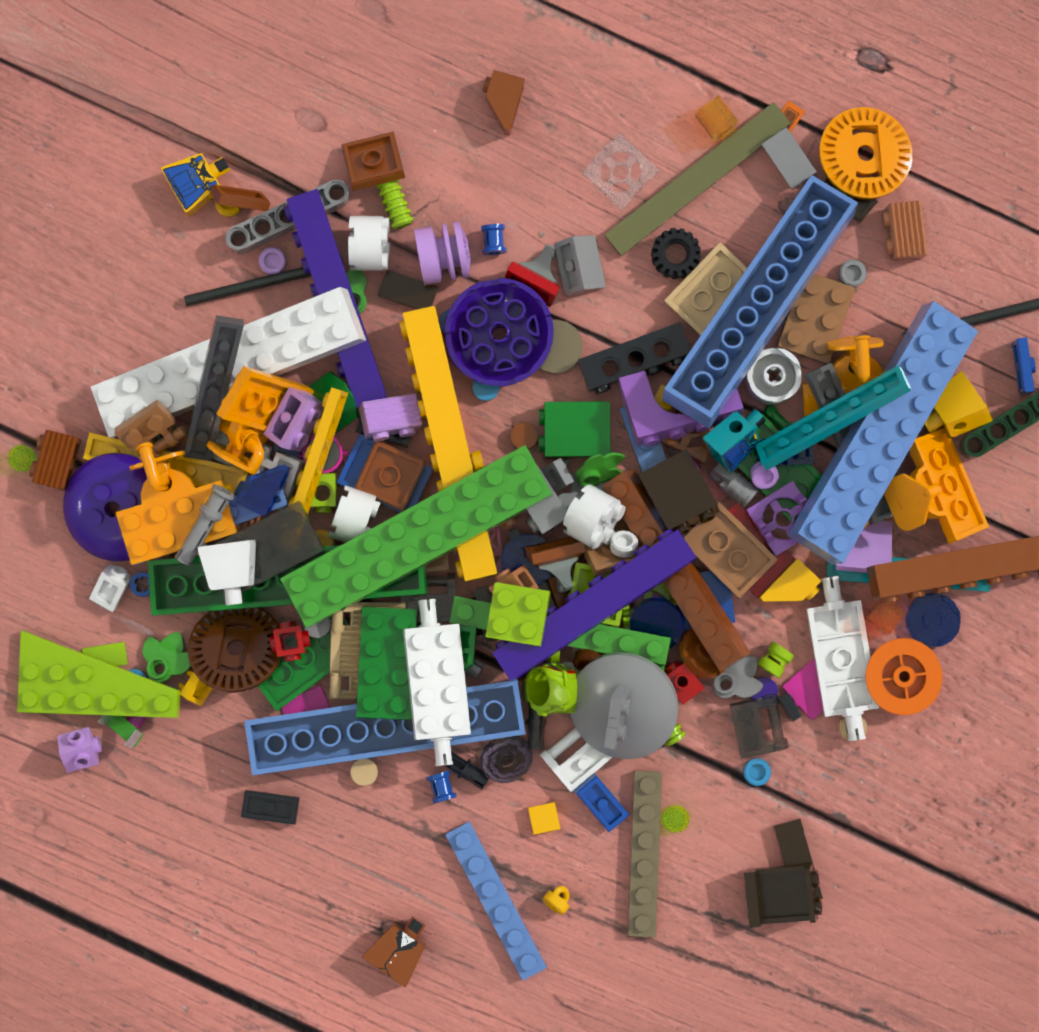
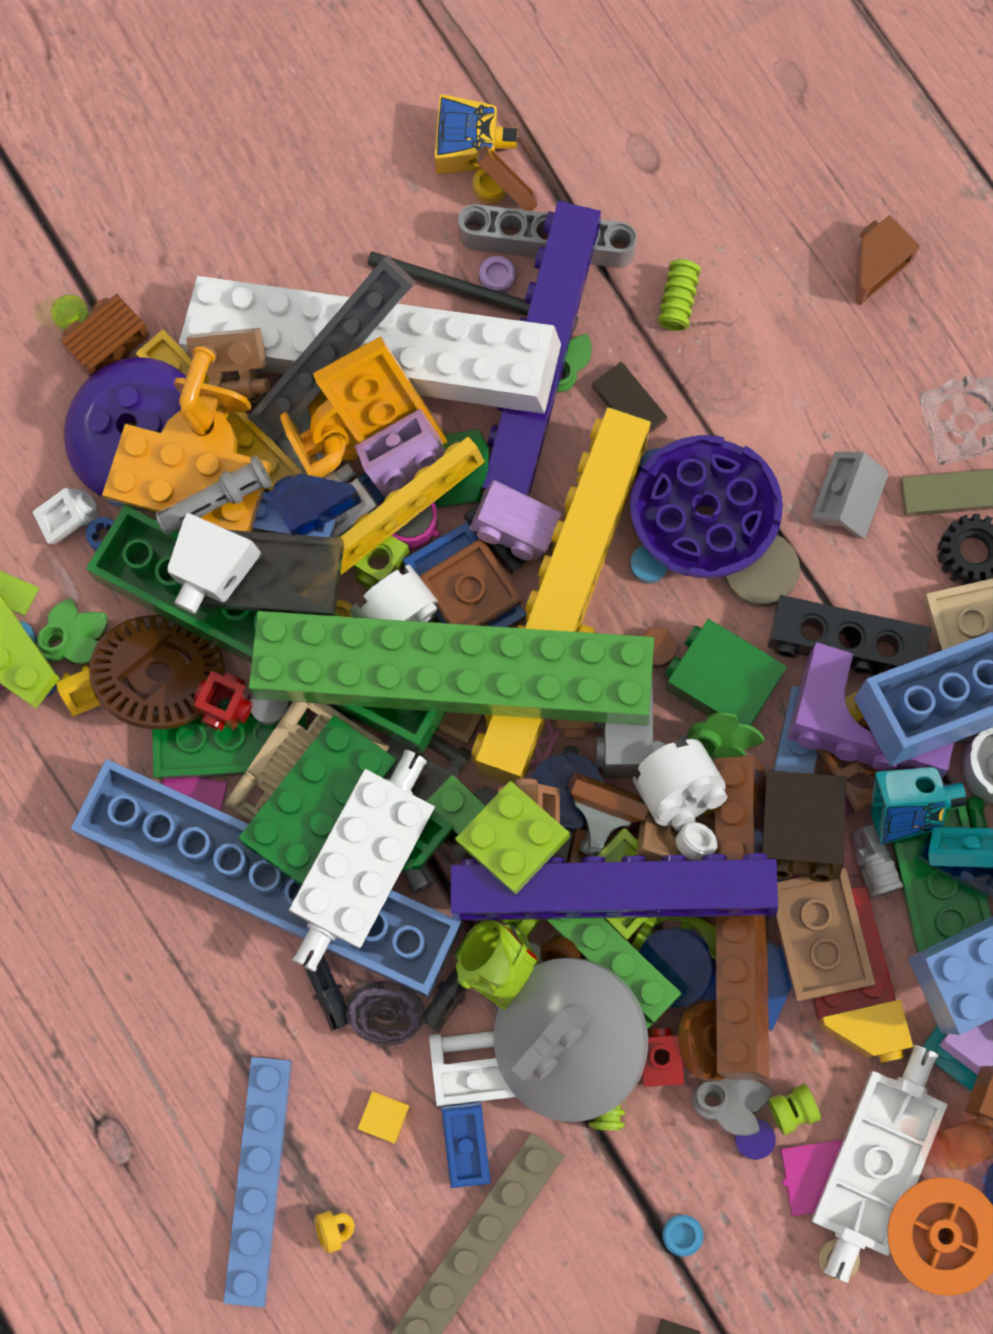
camera: 35 degrees right, 10 degrees down
(270, 807) = (69, 886): black plate -> none
(364, 772) = (207, 918): tan tile -> none
(368, 243) = (619, 314): white brick -> none
(373, 161) = (684, 233): dark orange tile -> none
(398, 951) = (98, 1162): dark orange torso -> none
(441, 787) = (285, 995): blue bush -> none
(442, 253) = (697, 377): lavender wheel -> none
(493, 239) = (767, 403): blue bush -> none
(537, 275) = (794, 472): red piece -> none
(558, 474) = (670, 715): light grey tile -> none
(675, 818) = (544, 1226): clear neon green plate -> none
(749, 726) = (708, 1173): clear smoke plate -> none
(757, 511) = (883, 911): medium lavender piece -> none
(763, 478) = (918, 873): lavender tile -> none
(789, 707) = (774, 1179): black tile -> none

